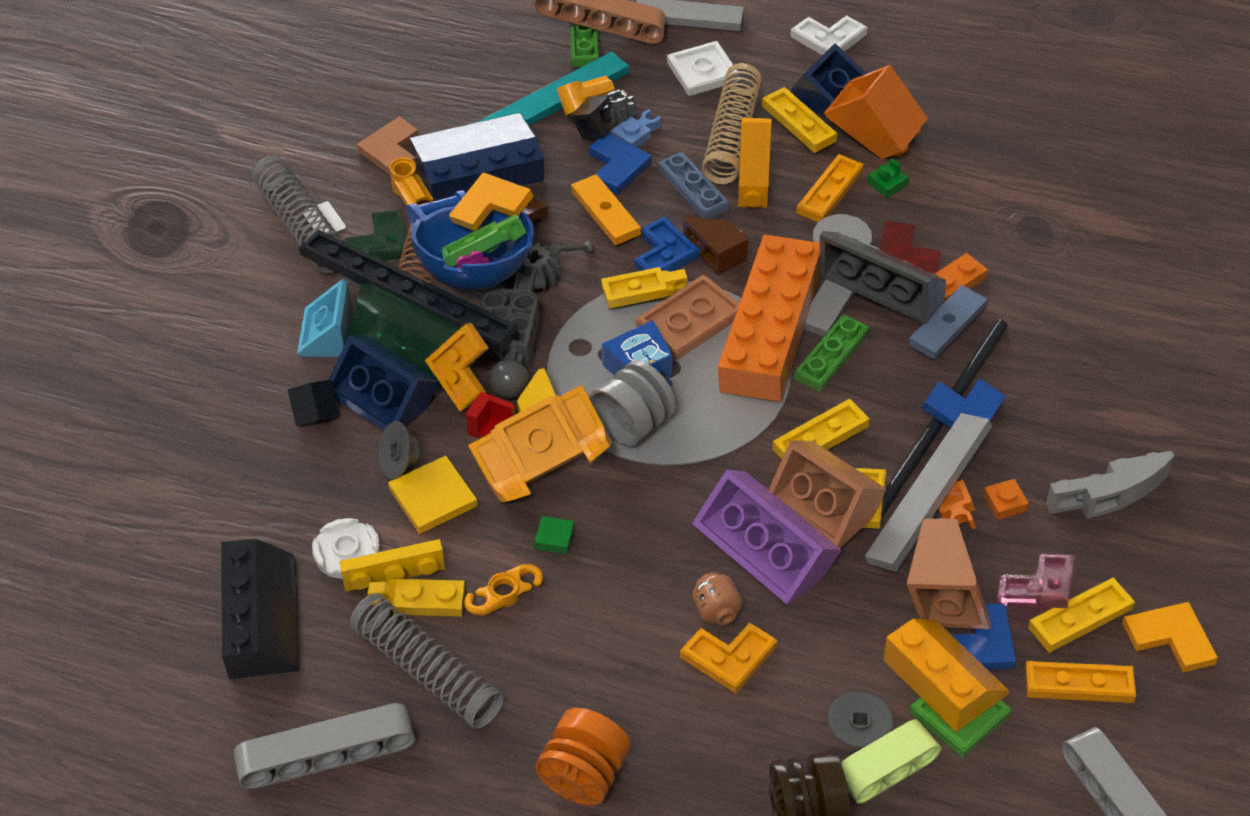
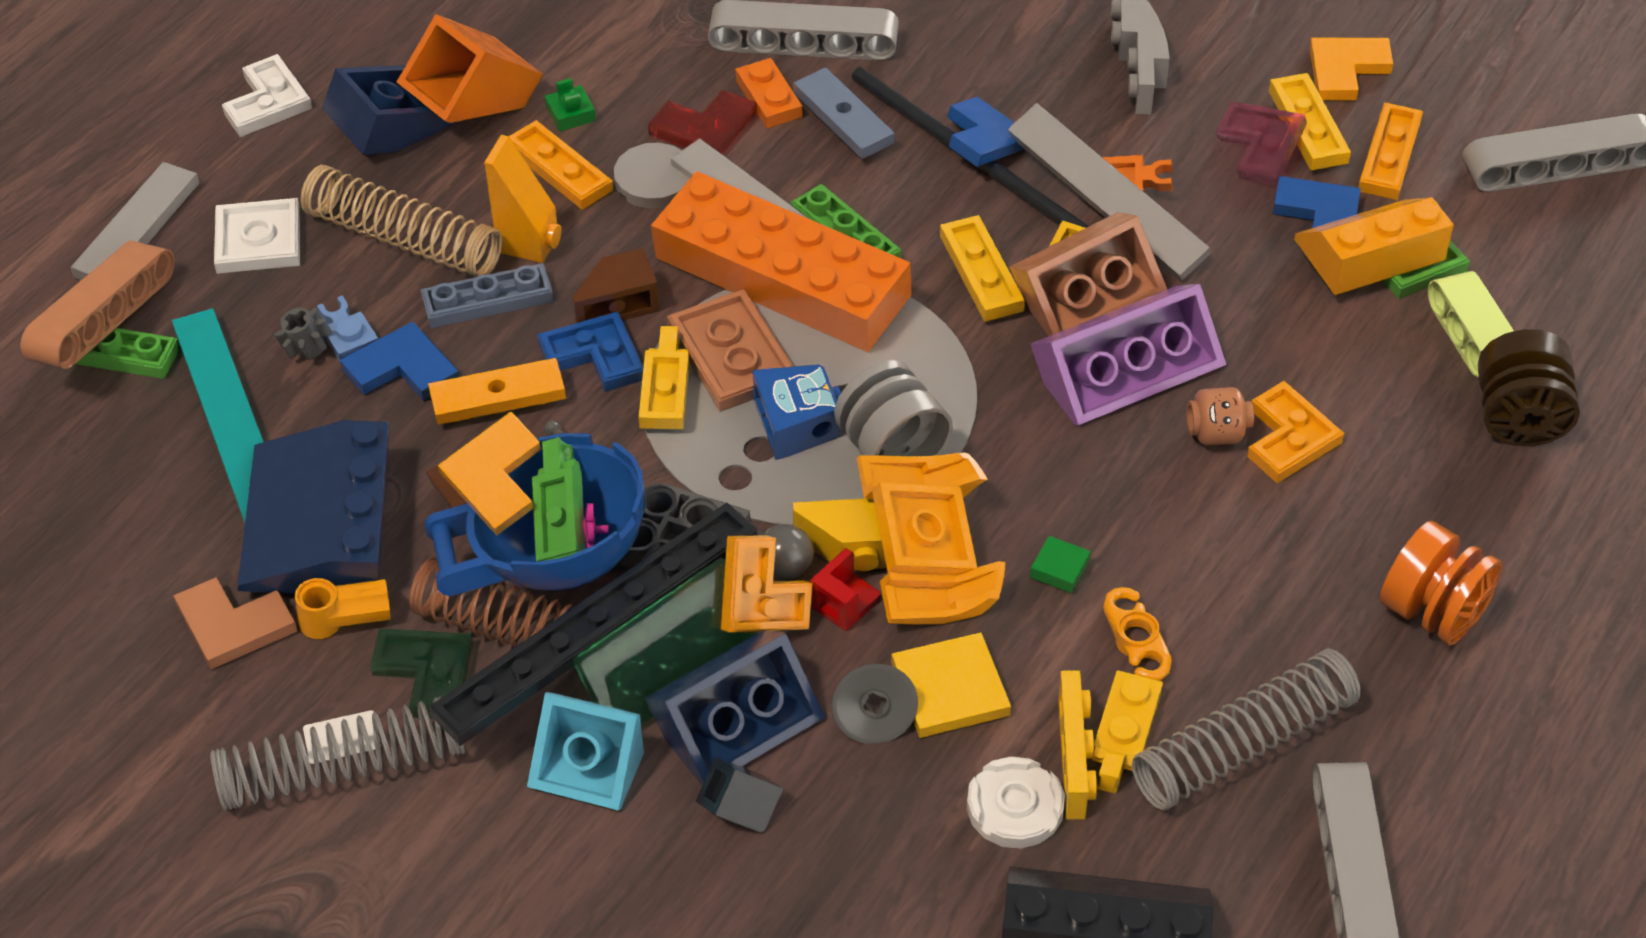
camera: 75 degrees left, 0 degrees up
(575, 93) = (255, 364): light orange piece -> none
(589, 117) = (312, 360): black panel -> none
(799, 119) = (422, 159): yellow plate -> none
(860, 707) = (1417, 331): dark grey piece -> none
(880, 276) = (775, 132): dark grey slope -> none
(944, 578) = (1255, 193): nougat slope -> none
(1005, 499) = (1125, 138): orange plate -> none
(1027, 281) = (803, 30): none -> light grey beam

